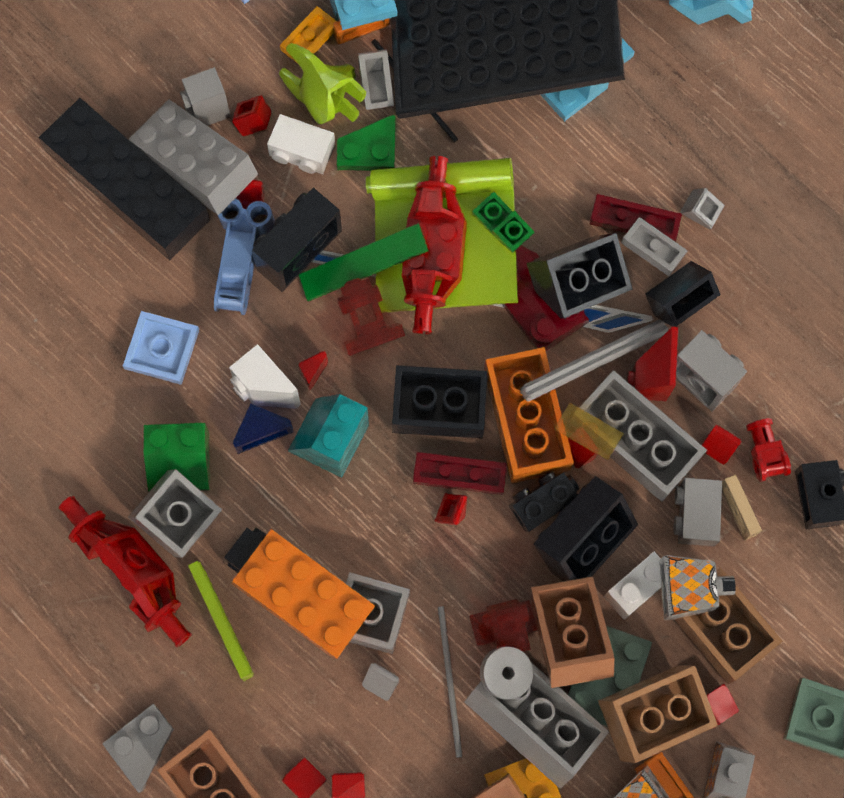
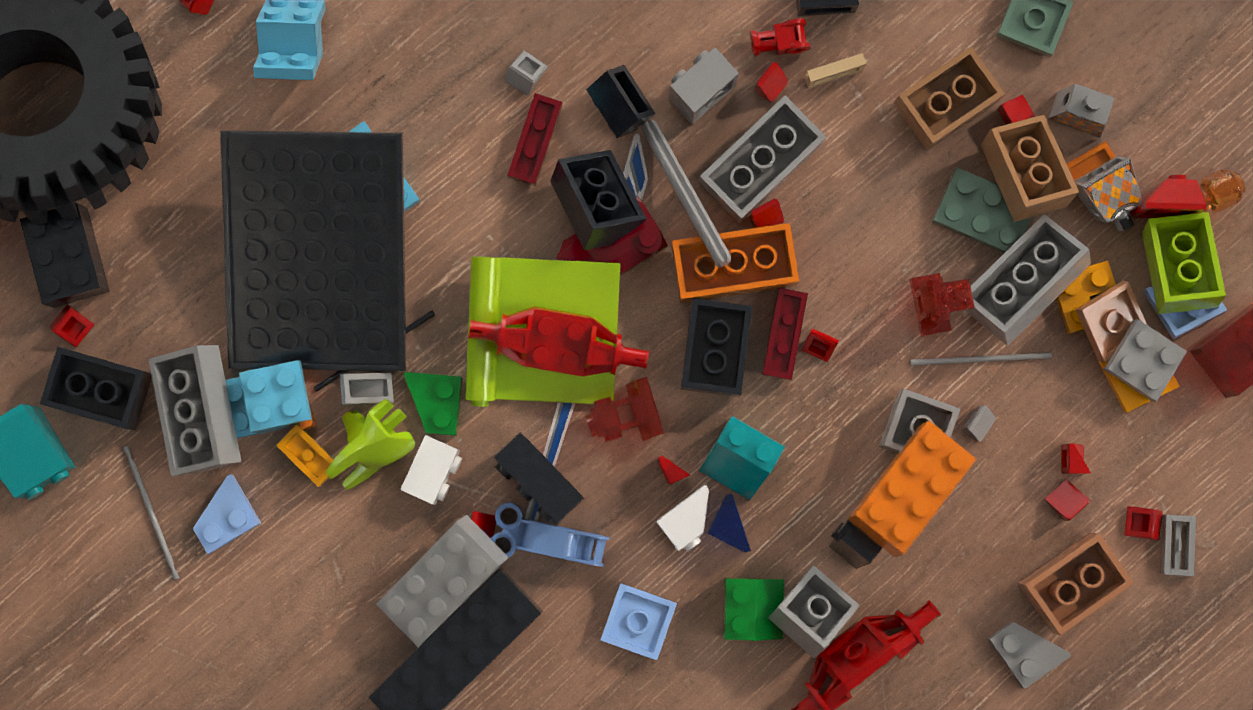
camera: 85 degrees left, 10 degrees up
(205, 97) = (377, 566): light grey brick -> none
(221, 621) = (916, 571): lime tile -> none
(251, 116) = (393, 519): red slope -> none
(363, 262) = (566, 413): green piece -> none
(503, 222) = (538, 270): green slope -> none
(520, 673) = (996, 290): light grey piece -> none
(545, 500) = (819, 254): black brick -> none
(572, 632) = (952, 239): nougat brick -> none
(586, 532) = (856, 218): black brick -> none
(589, 431) = (763, 204): clear yellow plate -> none
(636, 587) = (905, 173): white brick -> none
(654, 246) = (570, 123): light grey plate -> none
(656, 369) = (695, 134): red slope -> none
(691, 586) = (921, 123): torso -> none
(698, 512) = (838, 109): light grey brick -> none

